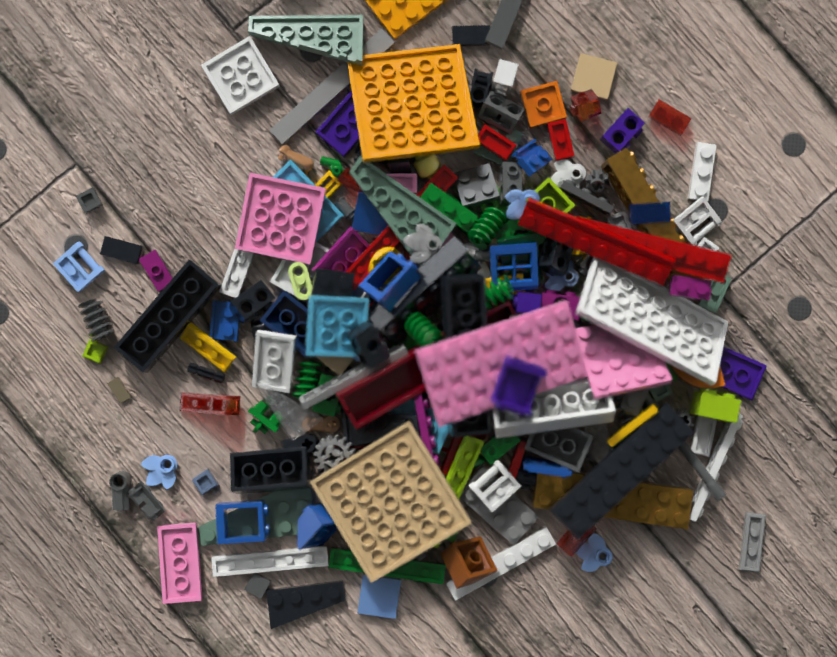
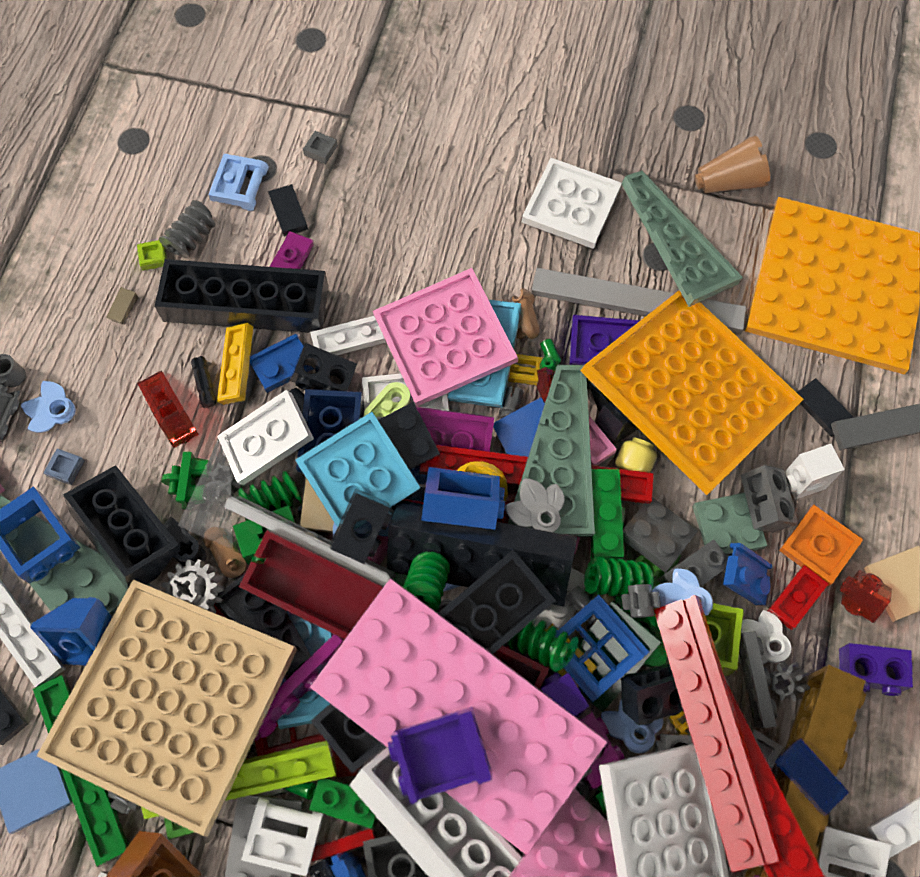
camera: 50 degrees right, 20 degrees down
(480, 85) = (777, 453): black piece -> none
(496, 143) = (728, 517): red tile -> none
(509, 227) = (641, 600): none -> dark grey gear

